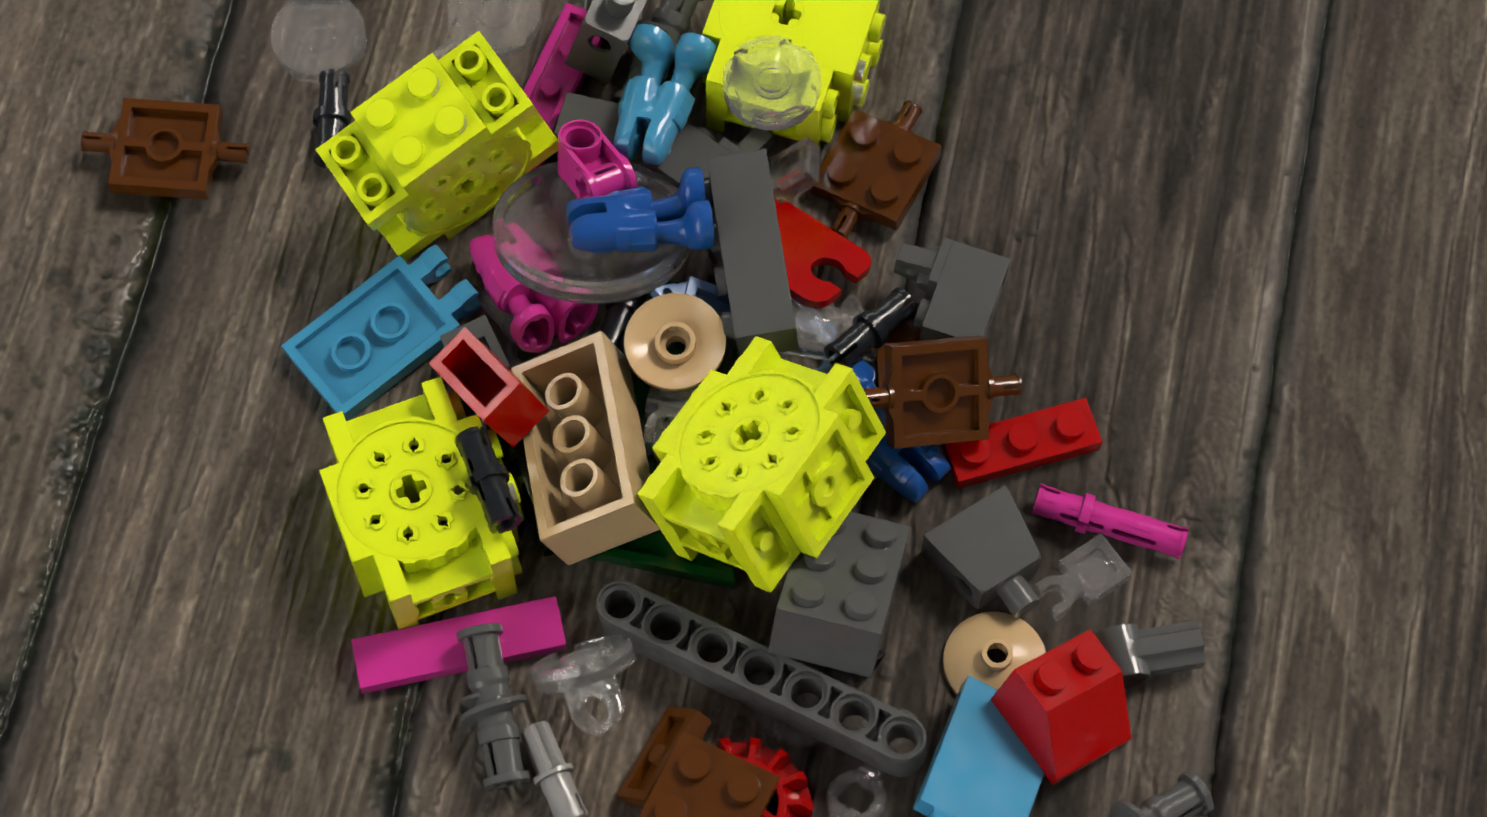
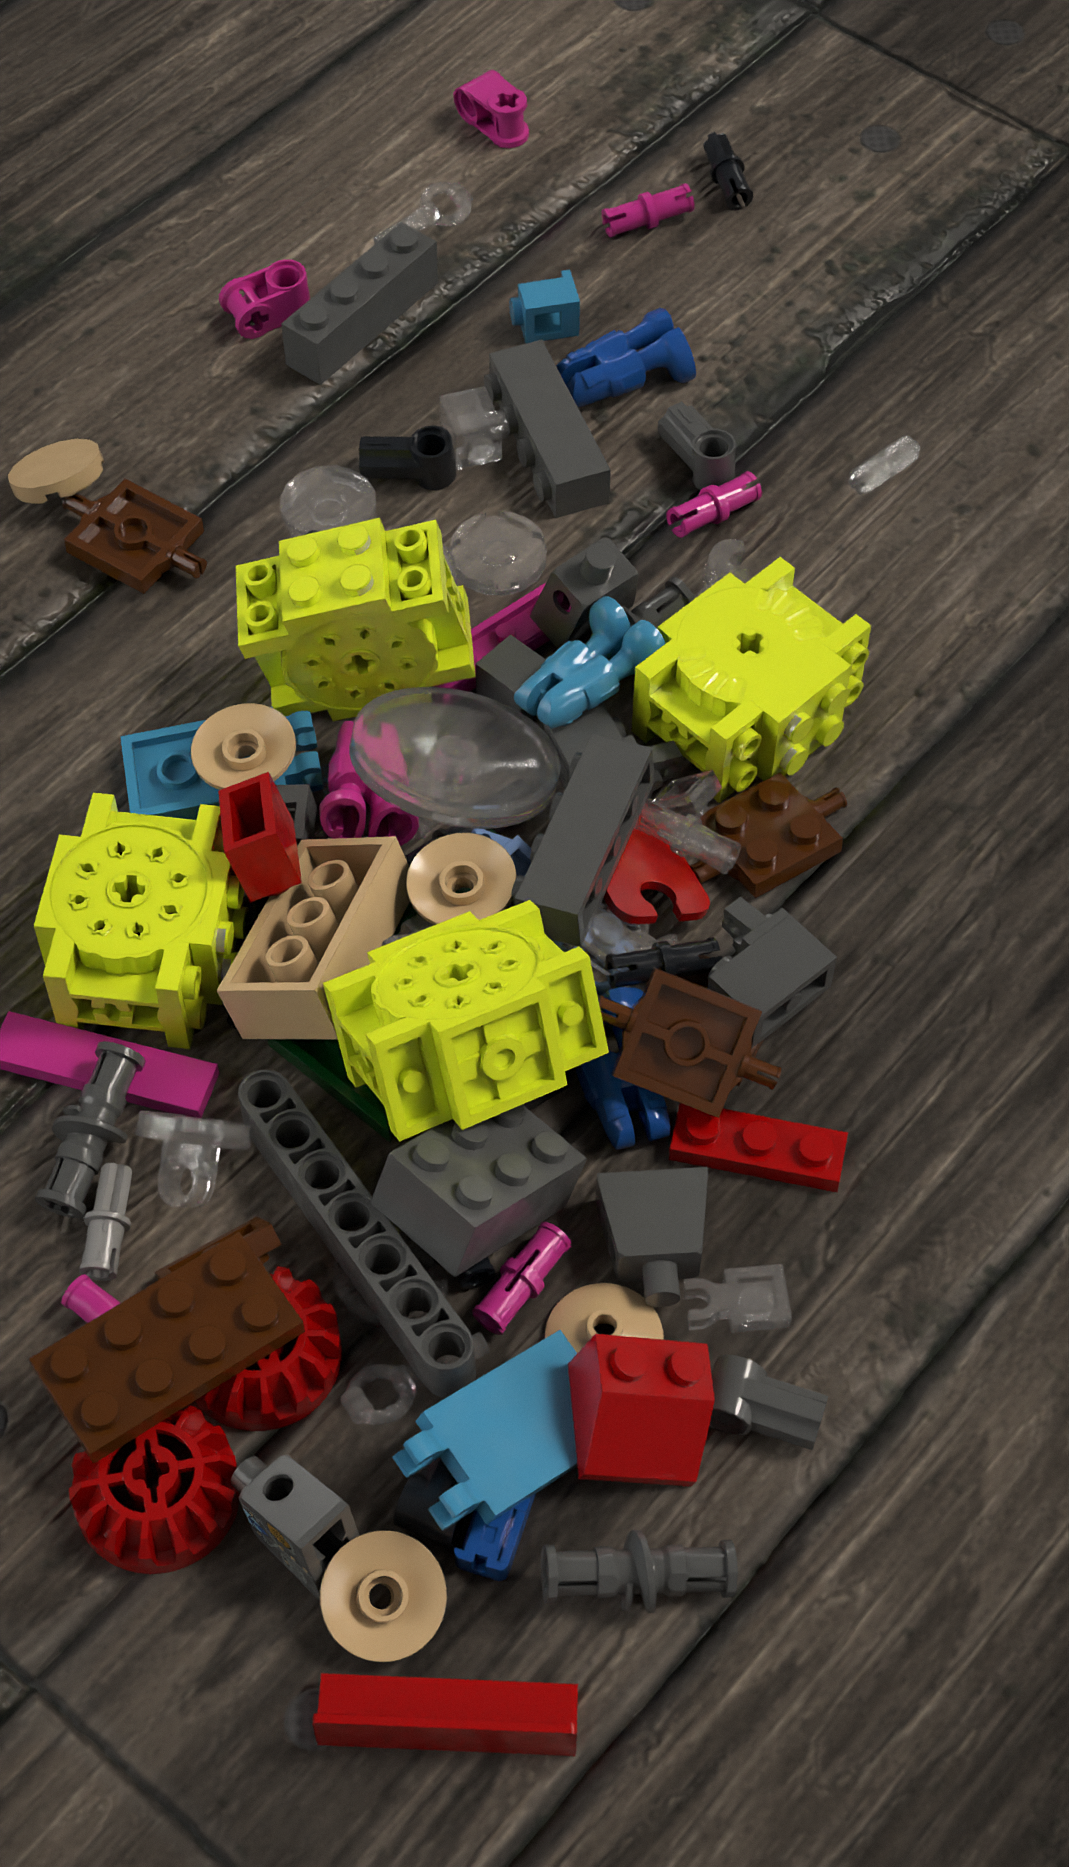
camera: 30 degrees right, 10 degrees down
(55, 118) = (55, 468): none -> tan tile
(404, 288) = (238, 733): none -> tan dish
(488, 480) = (197, 909): black pin -> none
(591, 162) = (488, 698): dark pink piece -> none
(635, 222) = (493, 759): blue piece -> none
(771, 83) = (694, 694): clear tile -> none
(821, 205) = (688, 836): none -> clear pin
(904, 679) = (521, 1278): none -> dark pink pin
(1120, 524) = (784, 1244): dark pink pin -> none

